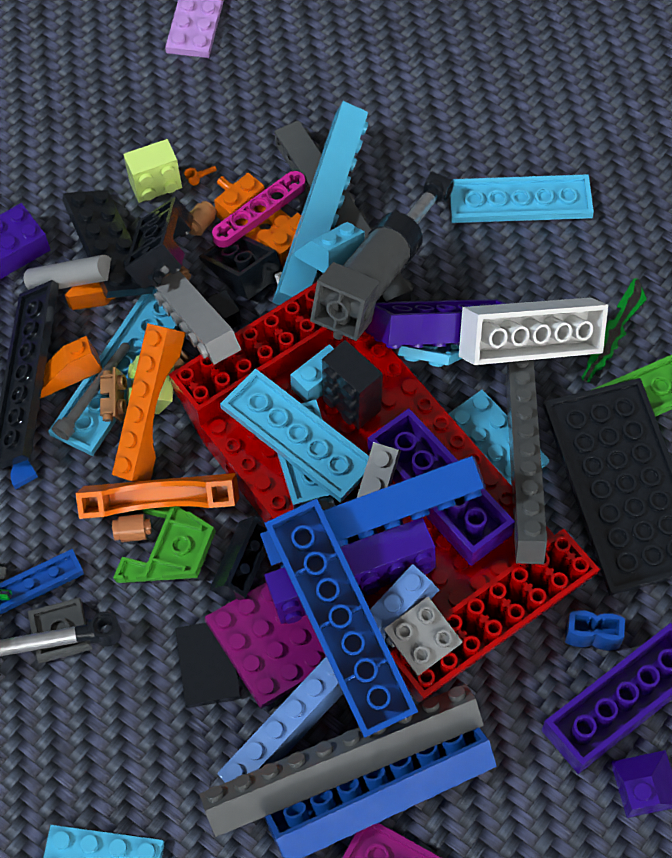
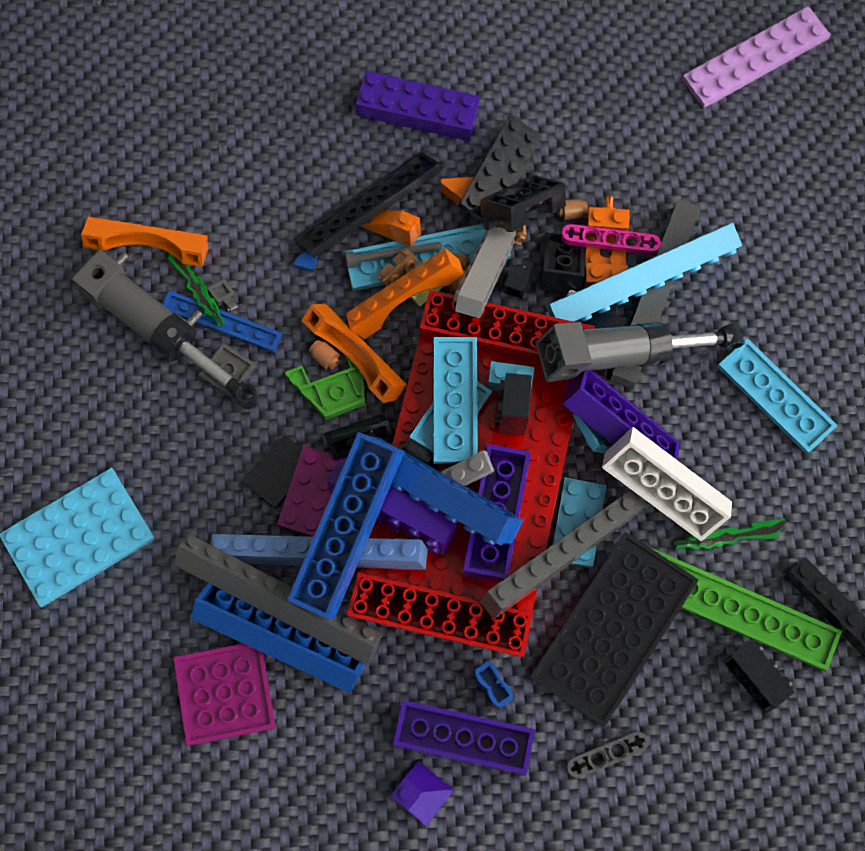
camera: 45 degrees right, 10 degrees up
(70, 273) = (455, 168): light grey brick -> none
(153, 170) = (577, 151): yellowish green brick -> none
(194, 176) = (601, 181): orange hand -> none
(331, 247) = (606, 311): medium azure slope -> none
(422, 636) = (383, 583): light grey hinge -> none

